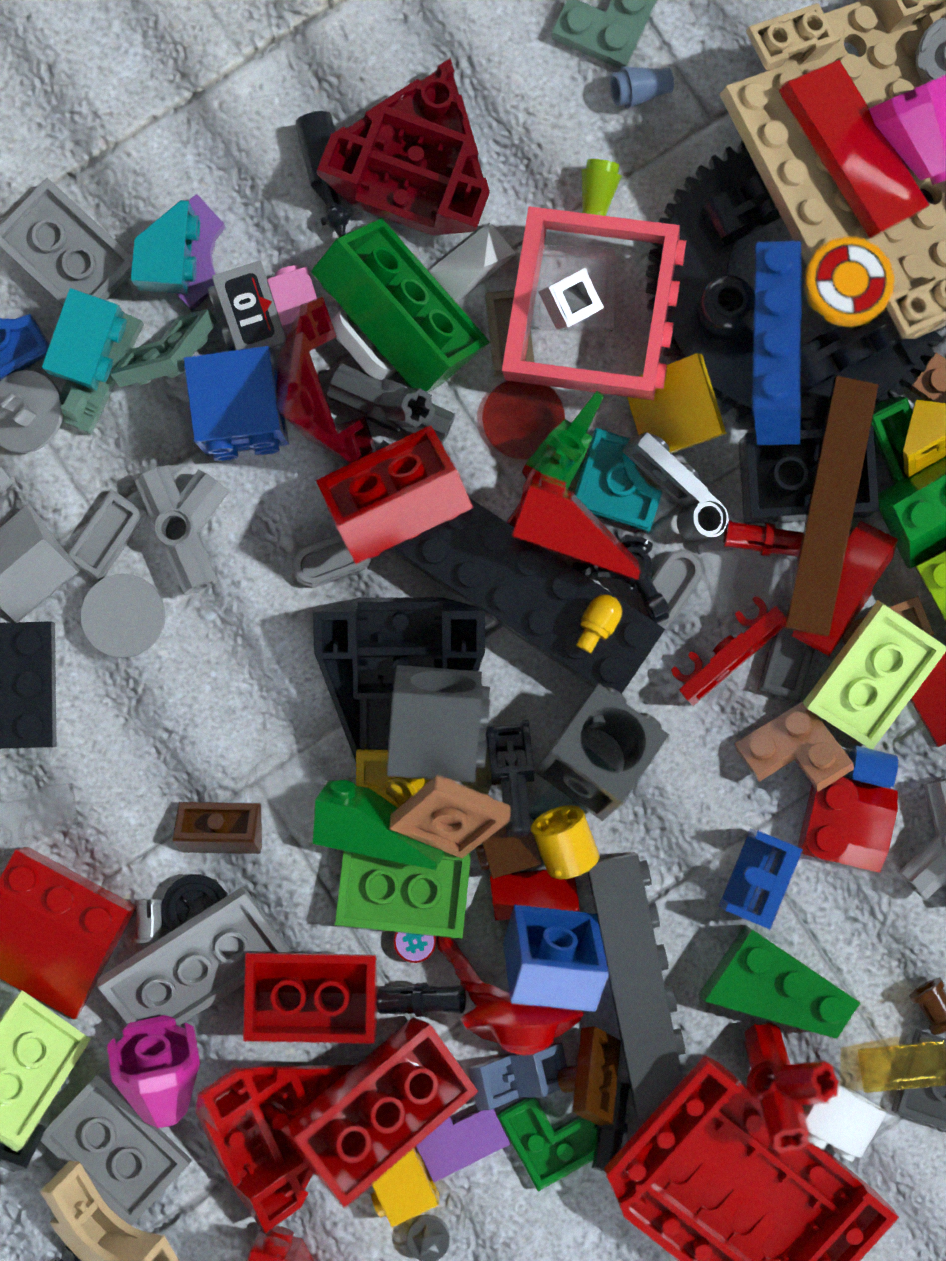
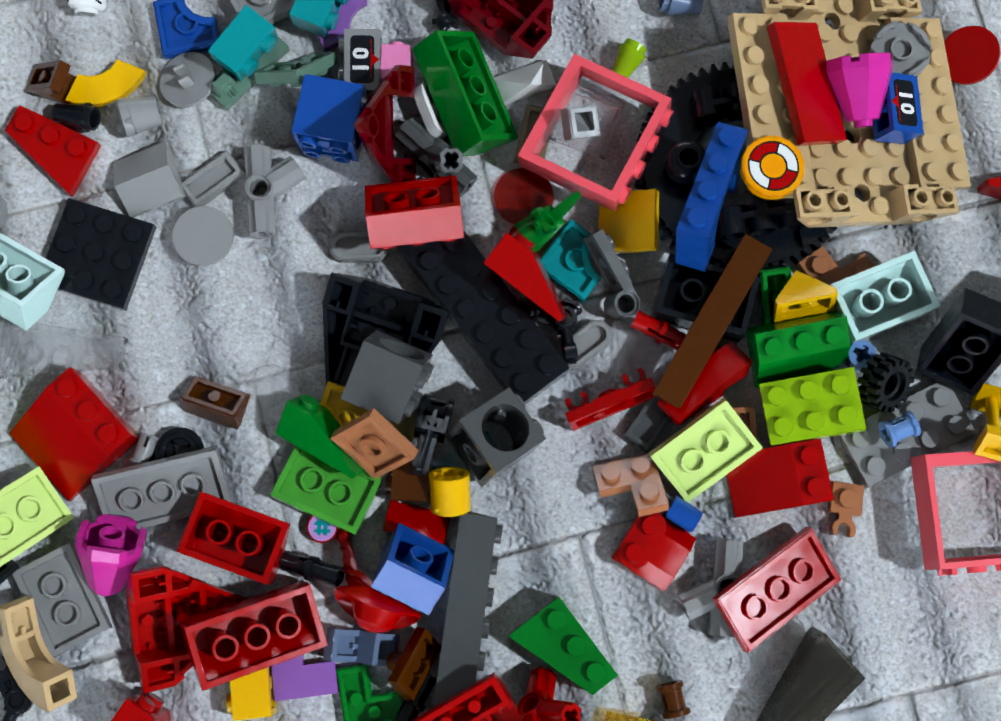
camera: 15 degrees right, 5 degrees down
(599, 621) = (524, 345): yellow cylinder -> none
(760, 878) = (578, 564): blue window -> none

